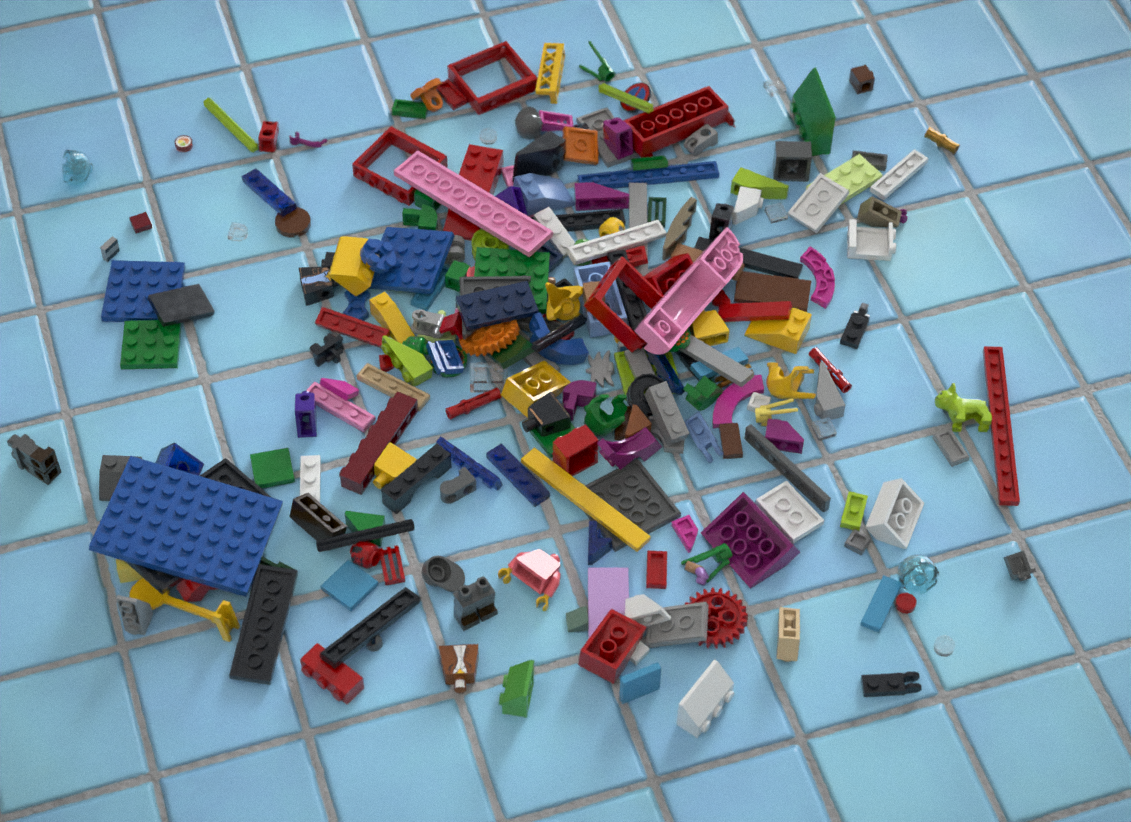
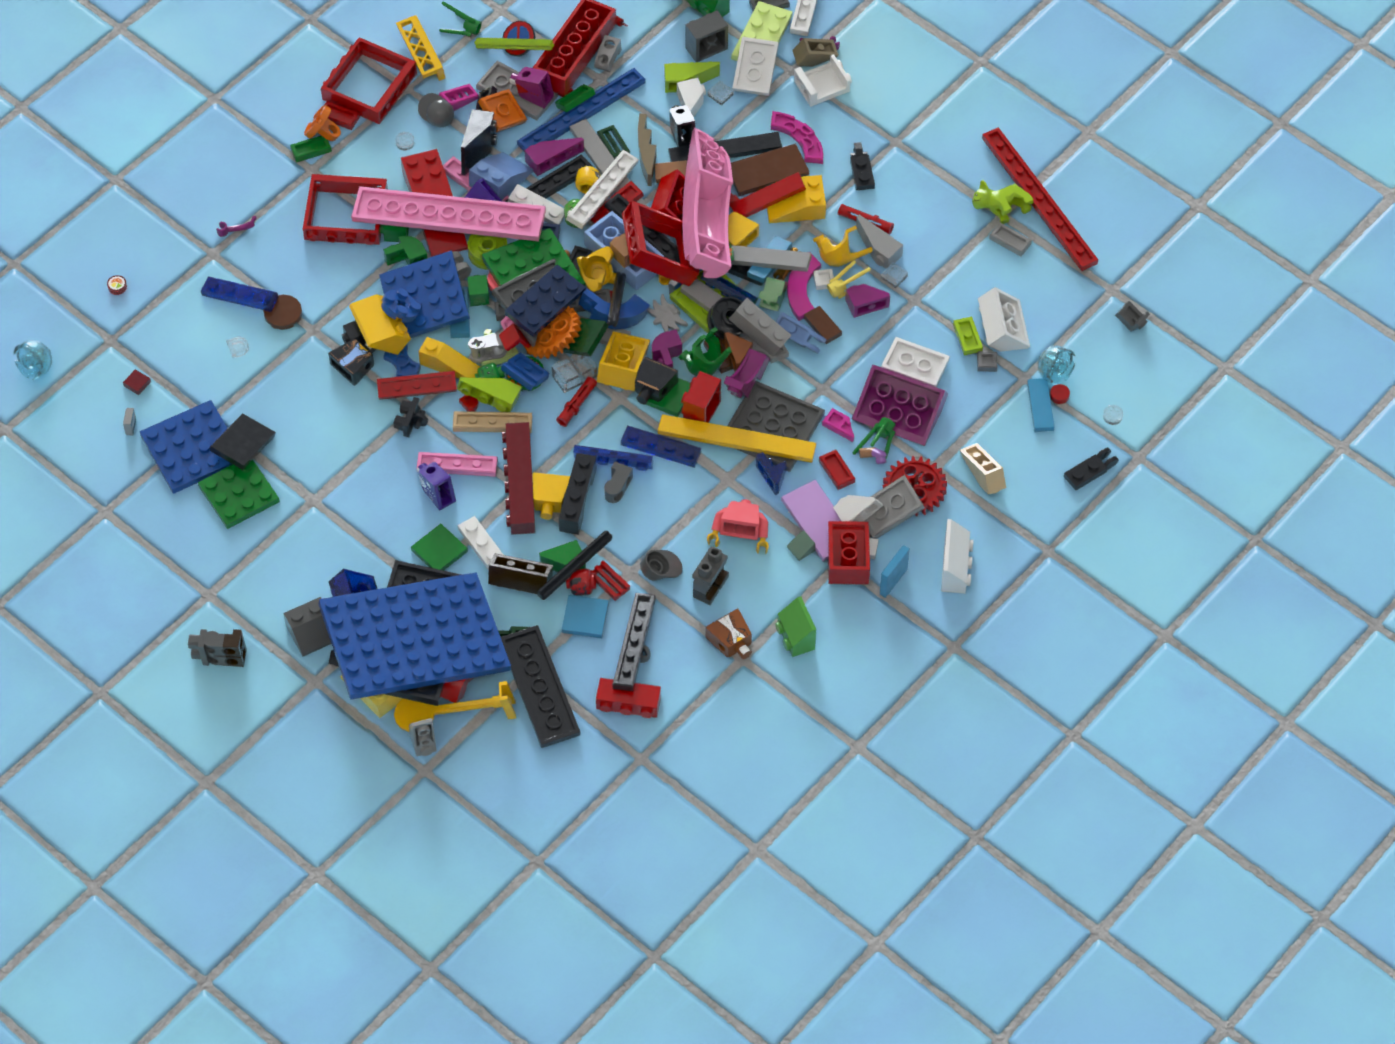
camera: 30 degrees left, 5 degrees up
(231, 125) = (149, 244): lime axle -> none
(268, 136) = (197, 238): red leg -> none
(340, 388) = (447, 446): dark pink tile -> none
(787, 468) = (888, 325): dark grey tile -> none

